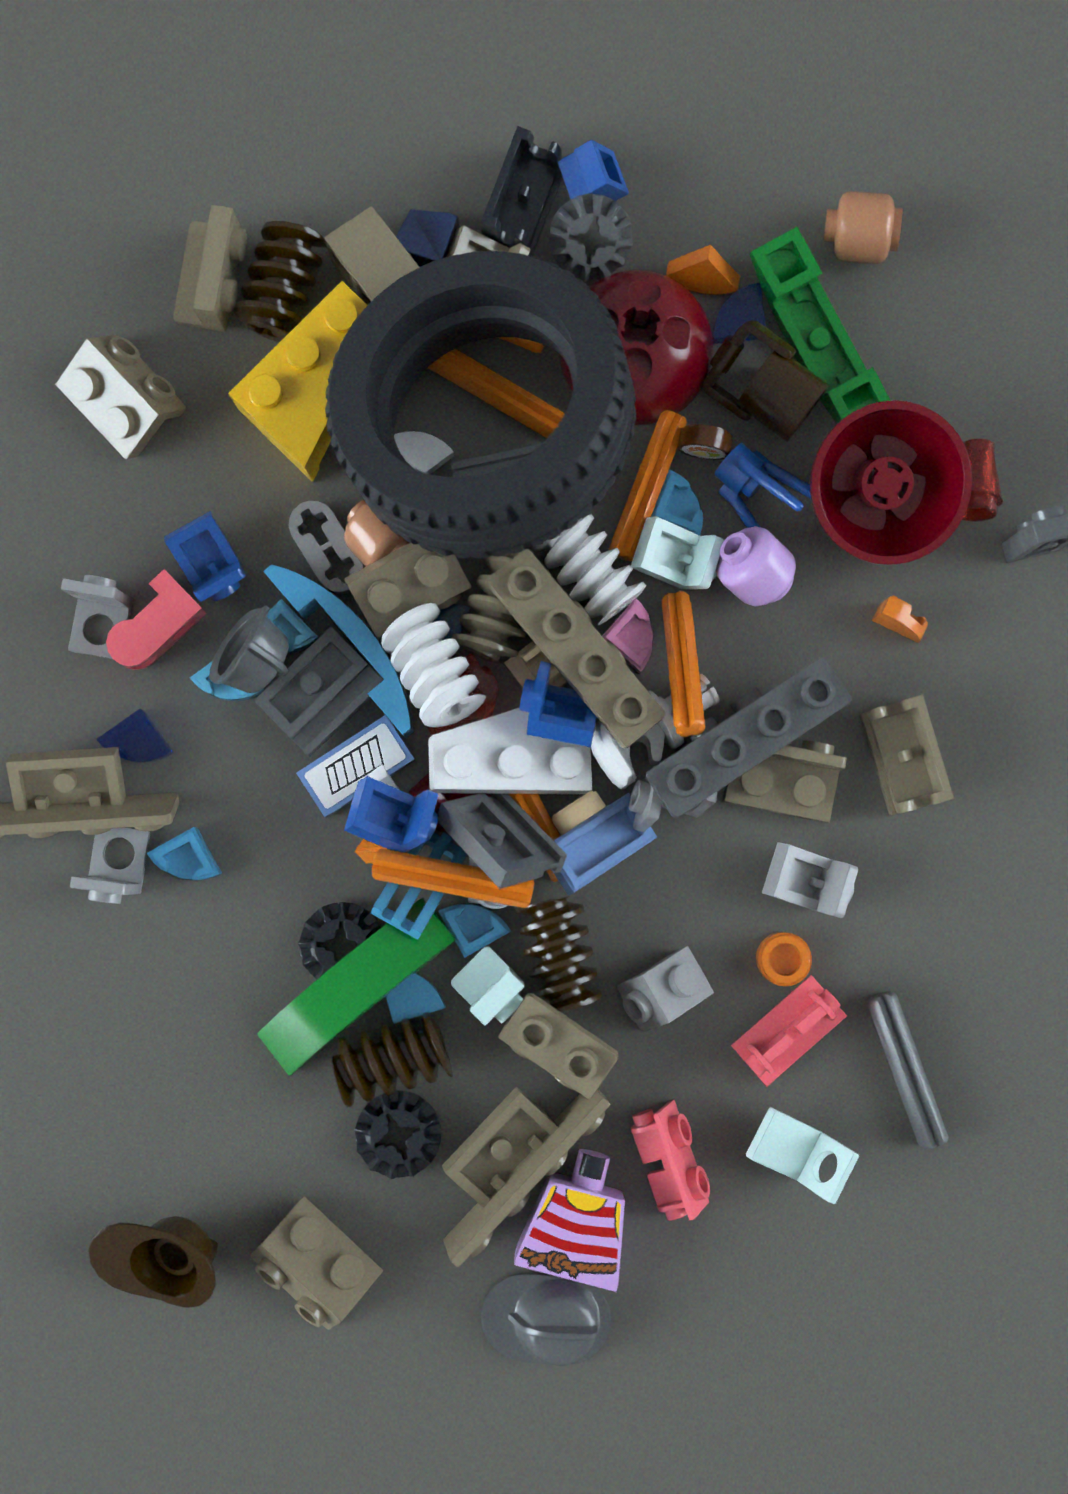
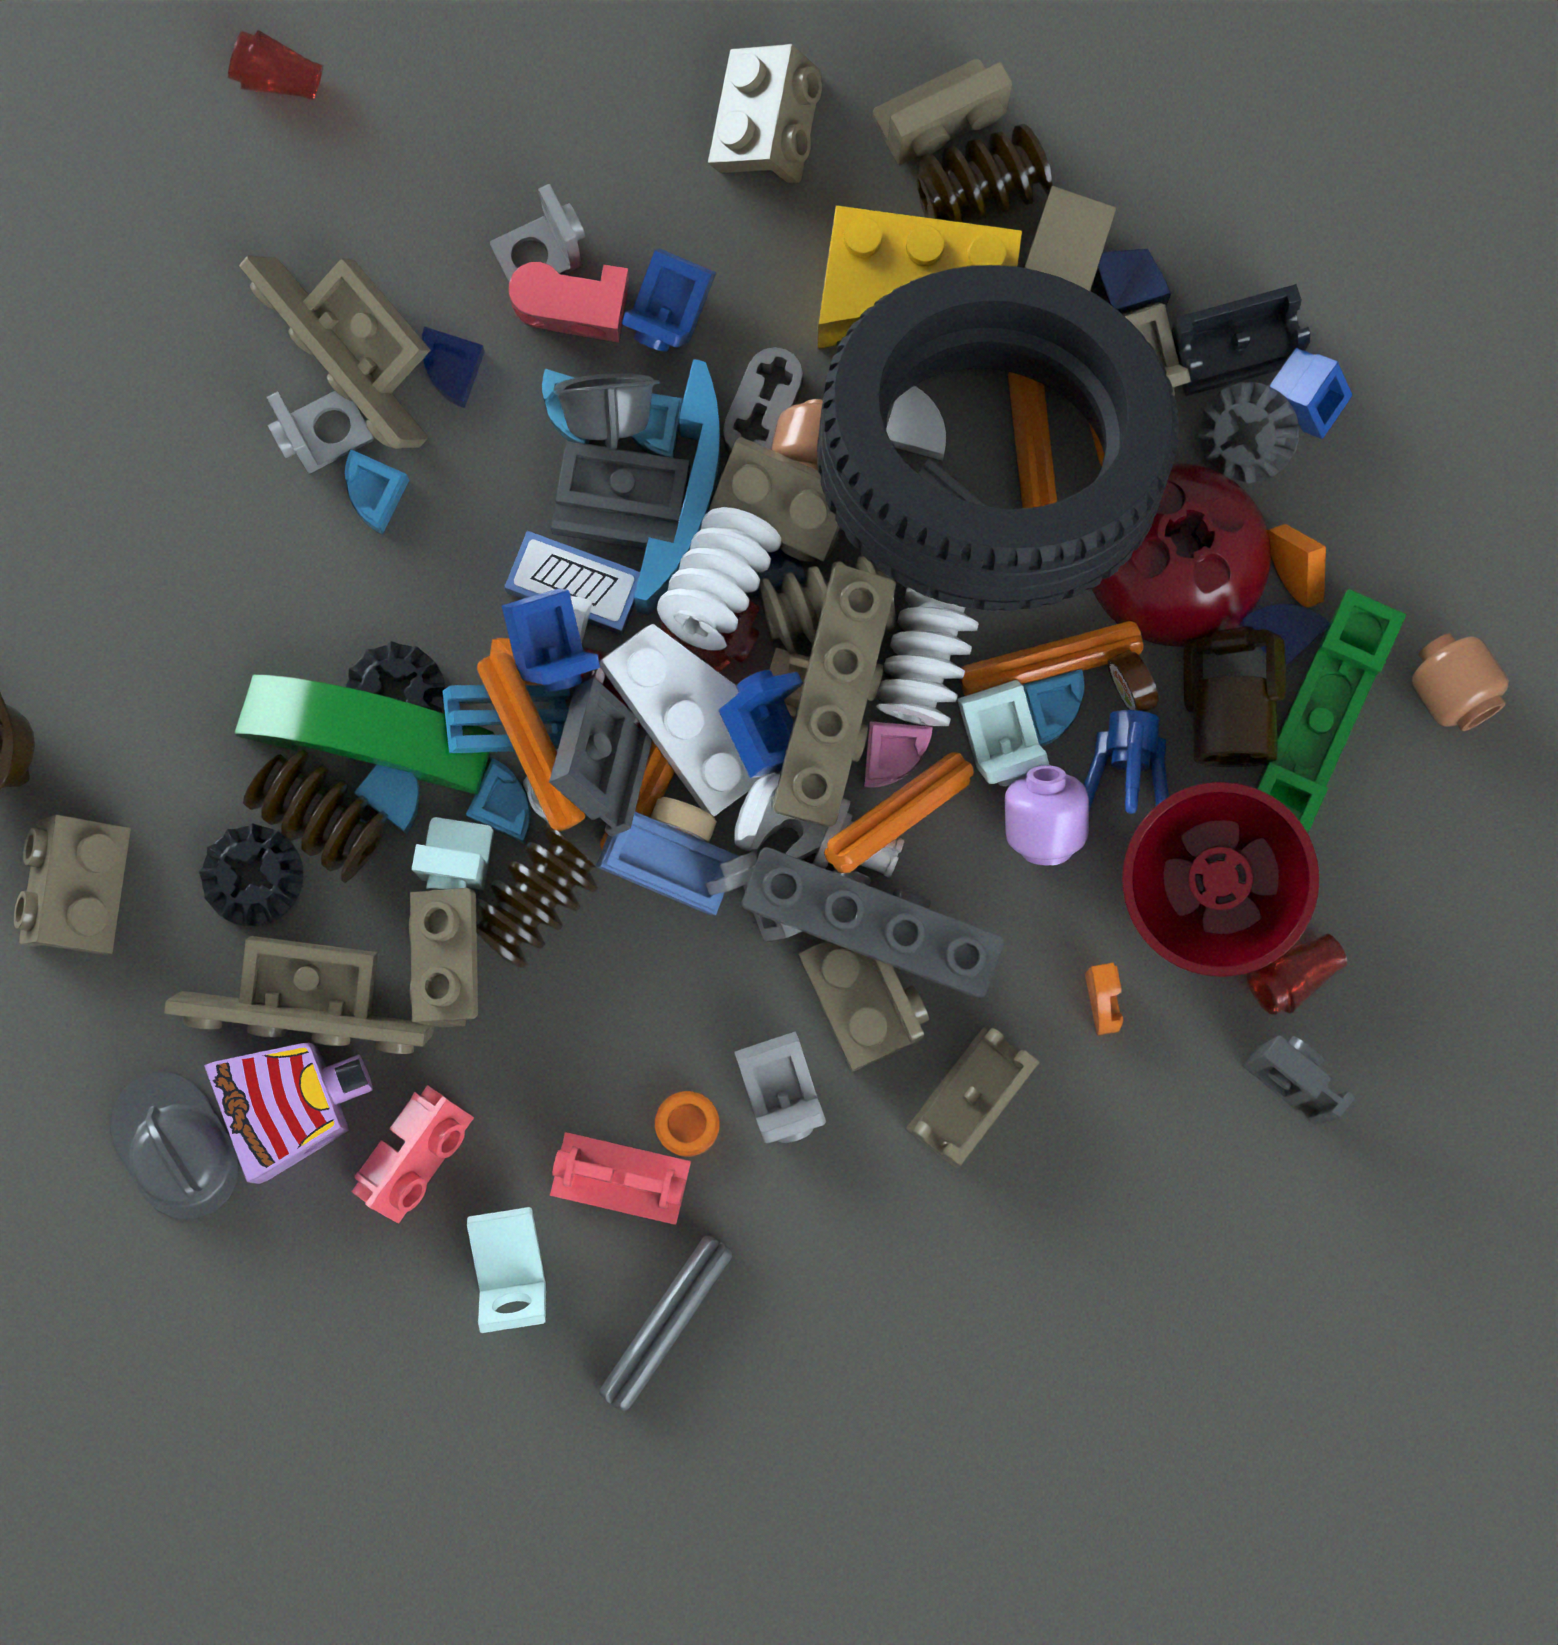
camera: 55 degrees right, 5 degrees down
(664, 990) = (573, 1027): light grey bracket -> none

